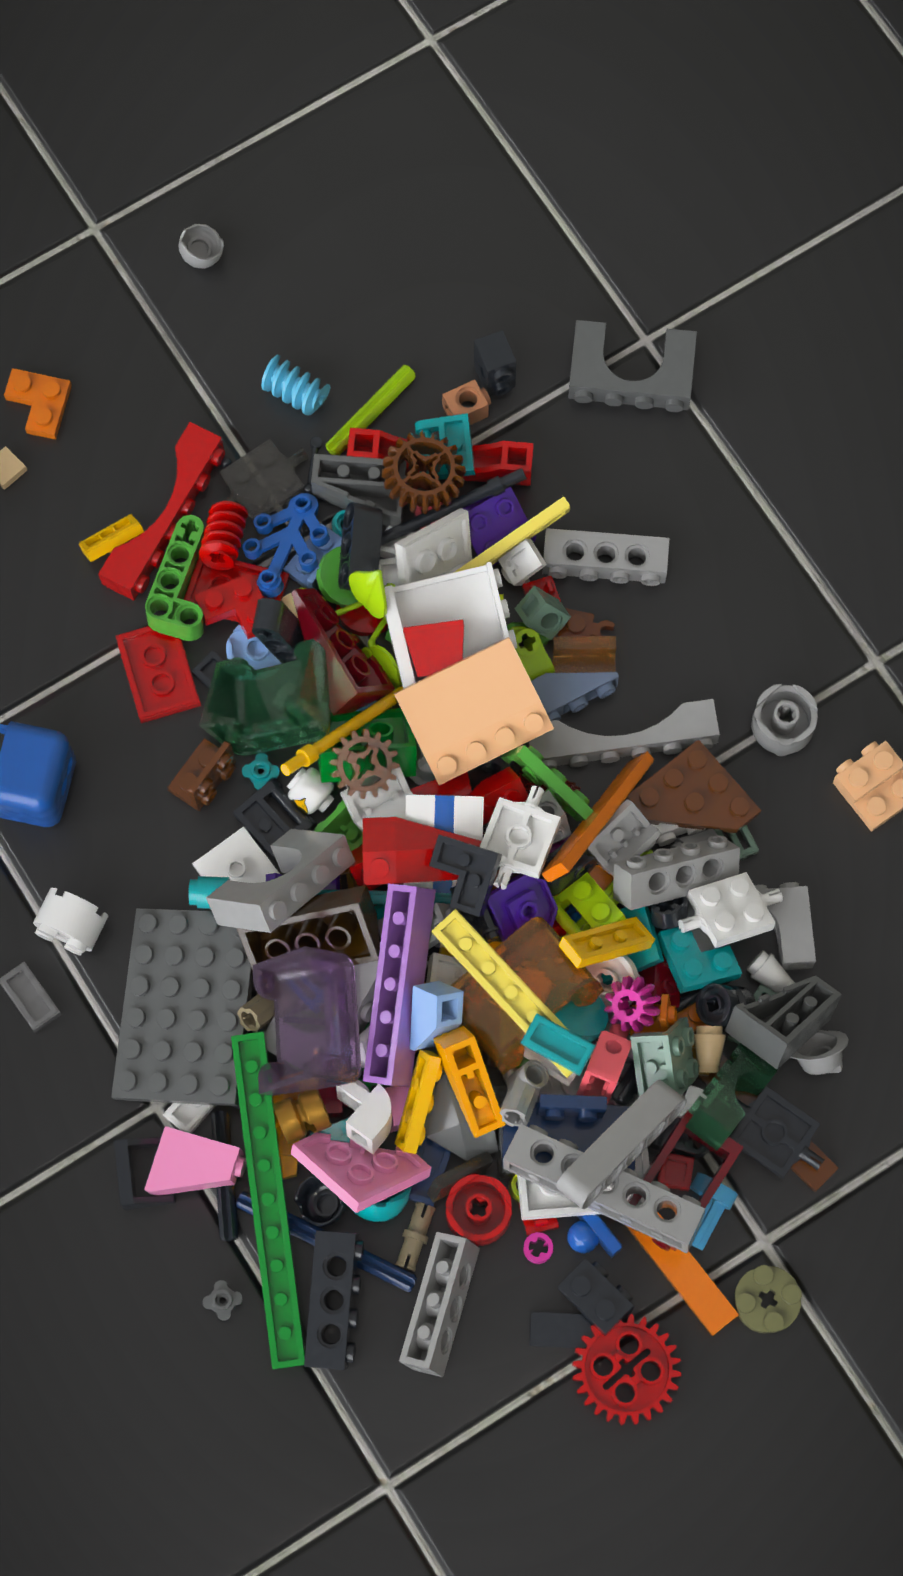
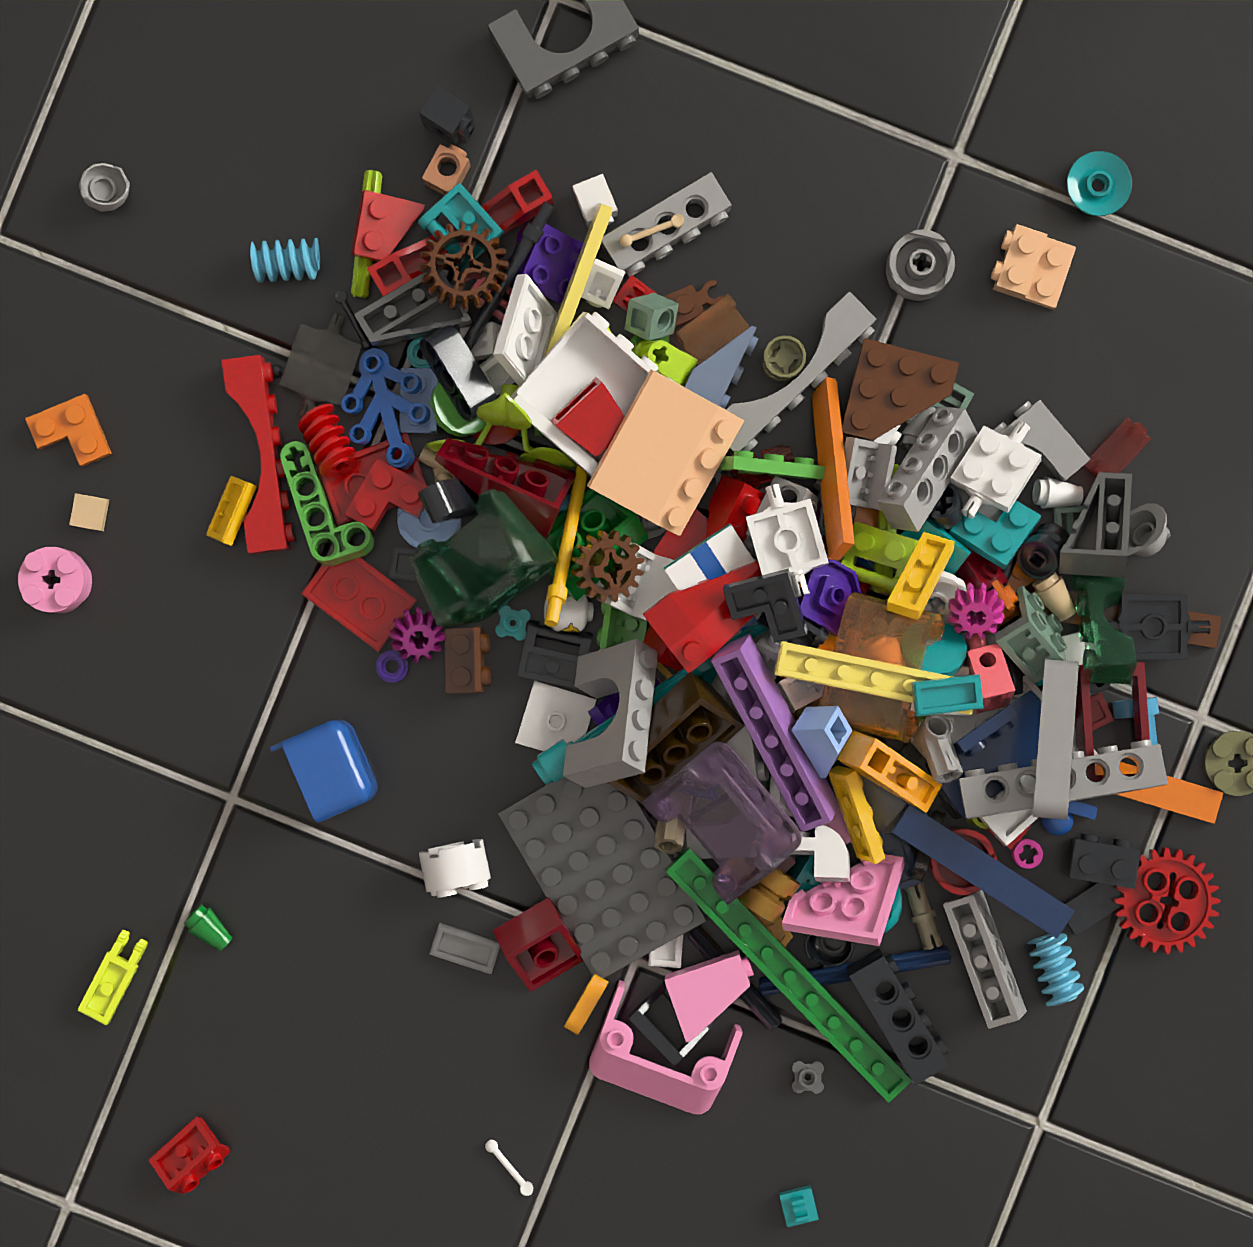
camera: 35 degrees left, 15 degrees up
(88, 1033) = (538, 944): none -> dark red slope
(89, 1108) = (585, 1004): none -> light orange beam
(118, 1238) = (615, 1064): none -> bright pink windscreen
(135, 1404) = (798, 1206): none -> teal tile
(142, 730) = (381, 666): none -> dark purple plate
(168, 725) = (420, 646): none -> magenta gear
(387, 408) = (382, 224): none -> wing
(488, 1223) = (982, 871): none -> dark blue tile
(491, 1358) = (1056, 969): none -> medium azure piece
(573, 494) = (591, 193): none -> white brick
(615, 554) = (676, 221): none -> tan hinge
(623, 714) = (783, 359): none -> olive wheel
(849, 974) = (1119, 448): none -> clear red hinge

